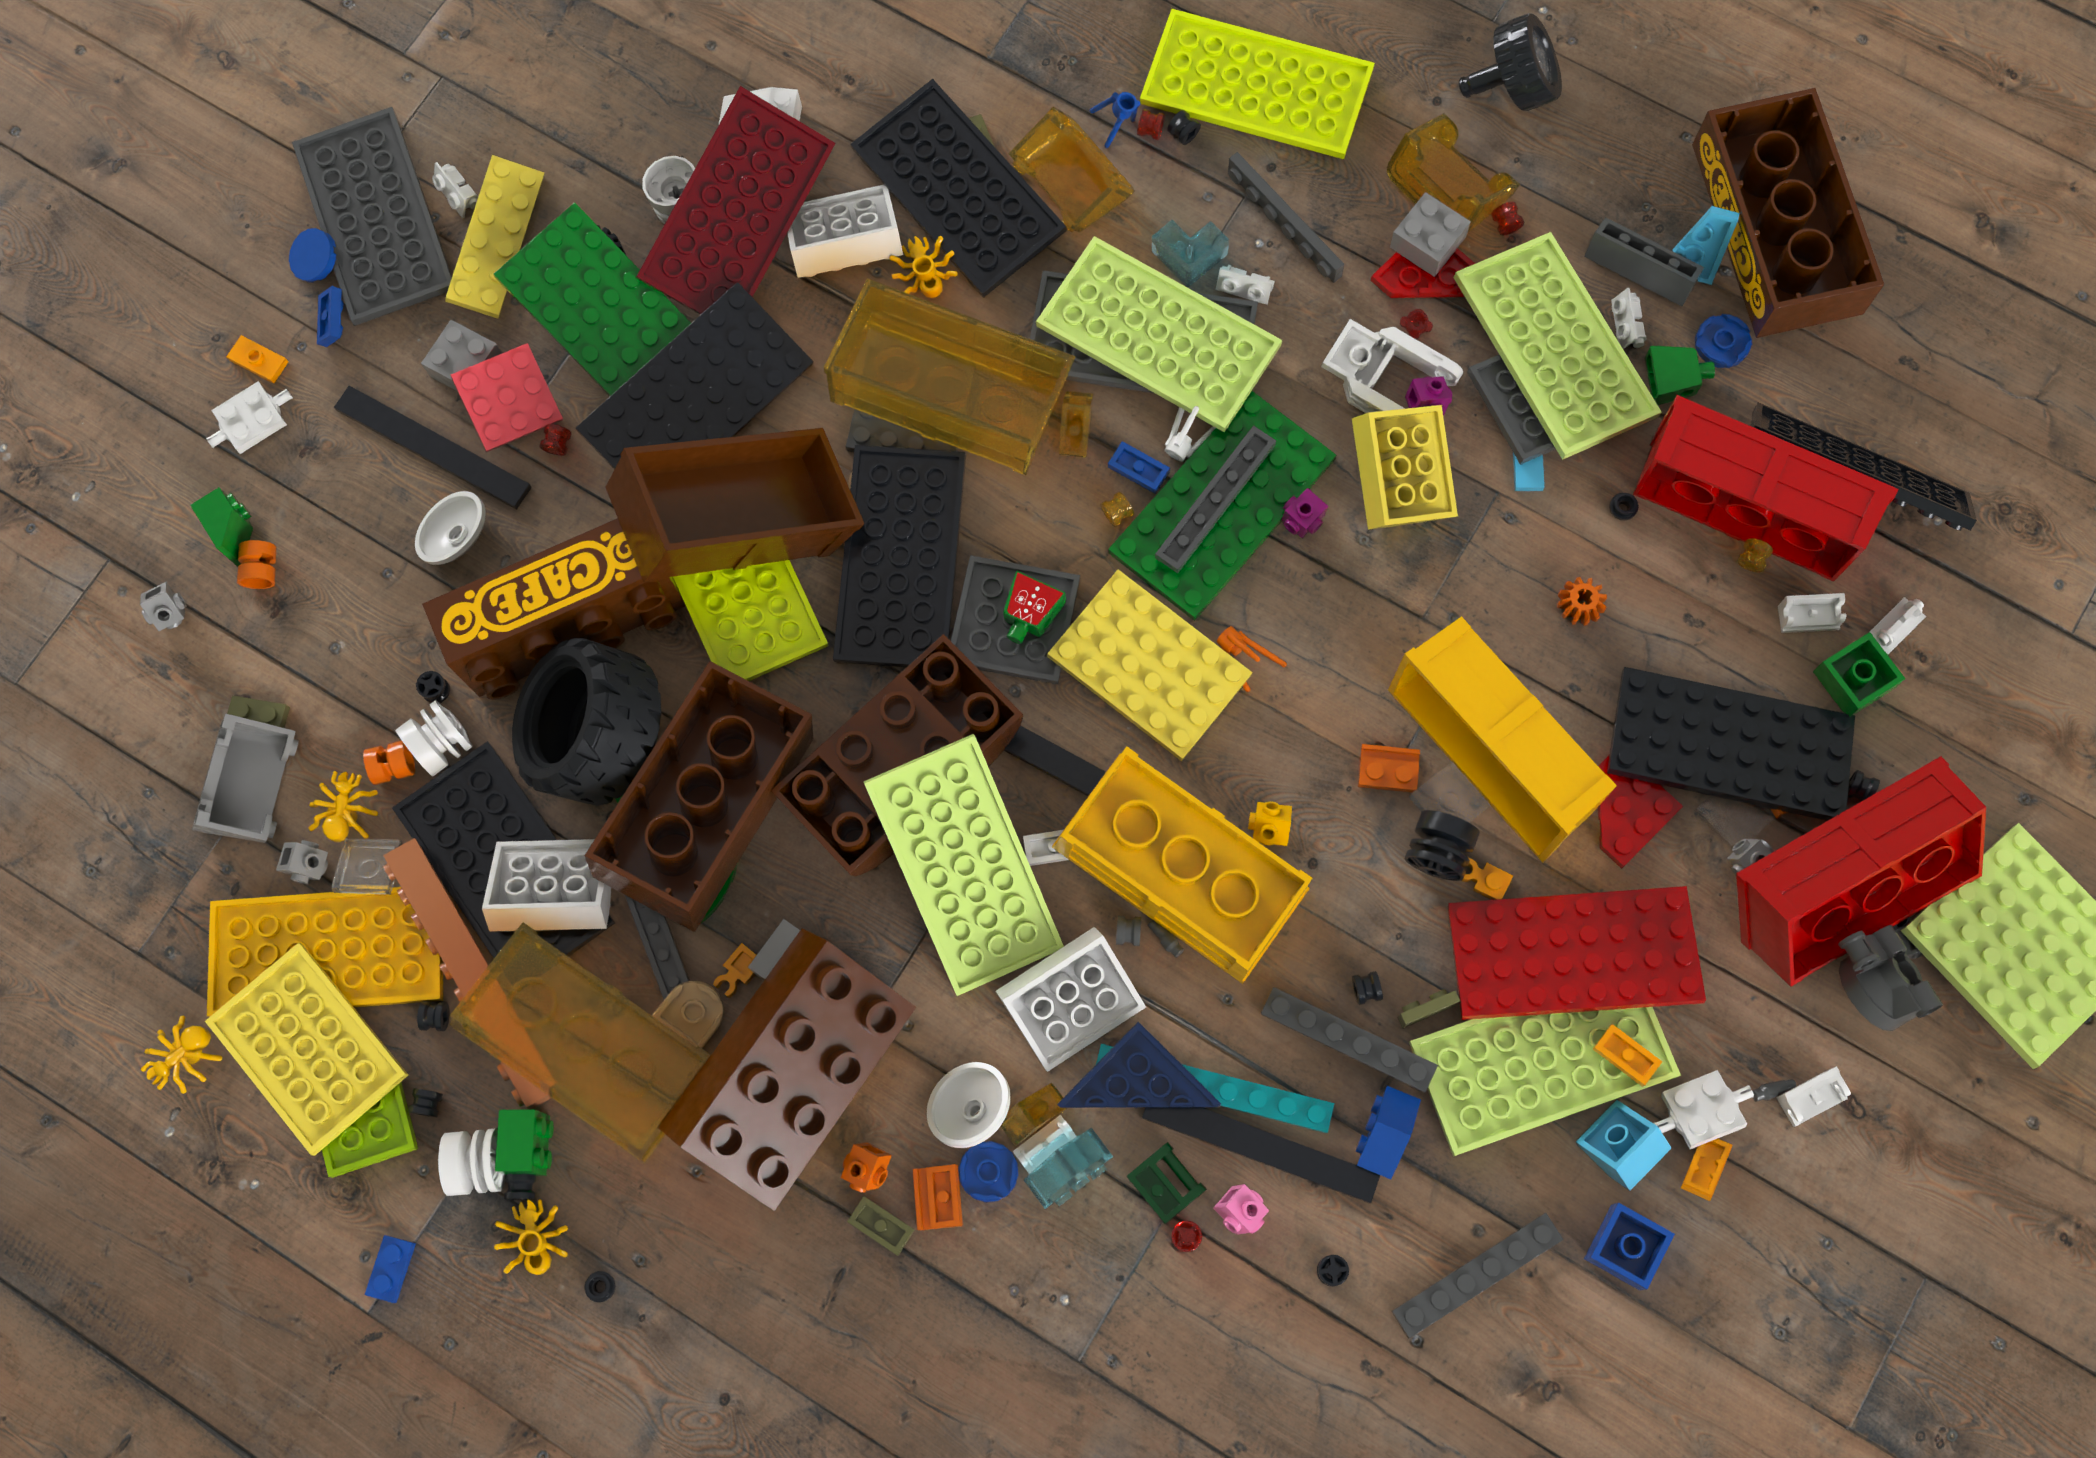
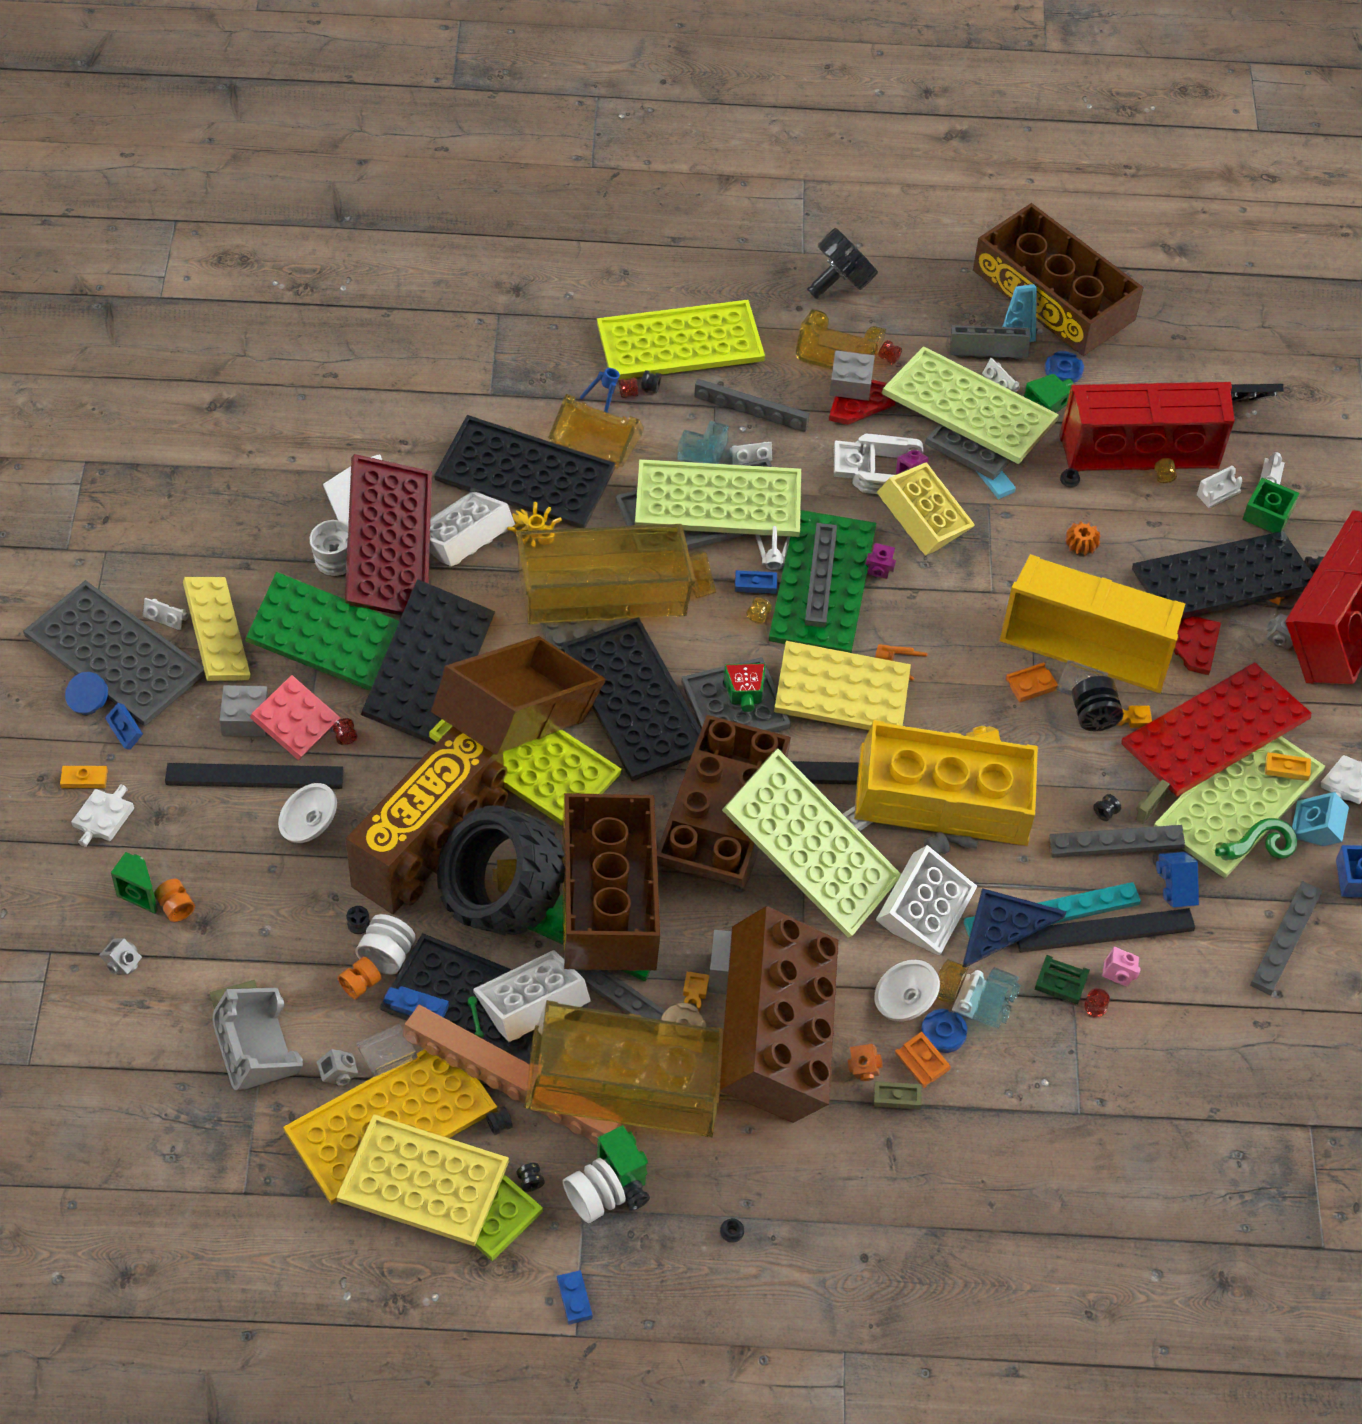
camera: 40 degrees left, 20 degrees down
(184, 1049) = (328, 1235): yellow animal -> none
(339, 813) = (343, 1024): yellow animal -> none
(427, 829) = (407, 1000): none -> blue hinge
(487, 857) = (472, 1001): none -> green hinge
(531, 1241) = (668, 1222): yellow animal -> none
(1338, 1270) = (1199, 970): black wheel -> none
(1421, 318) = (875, 428): clear red plate -> none
(1486, 1134) = (1237, 849): none -> green plant

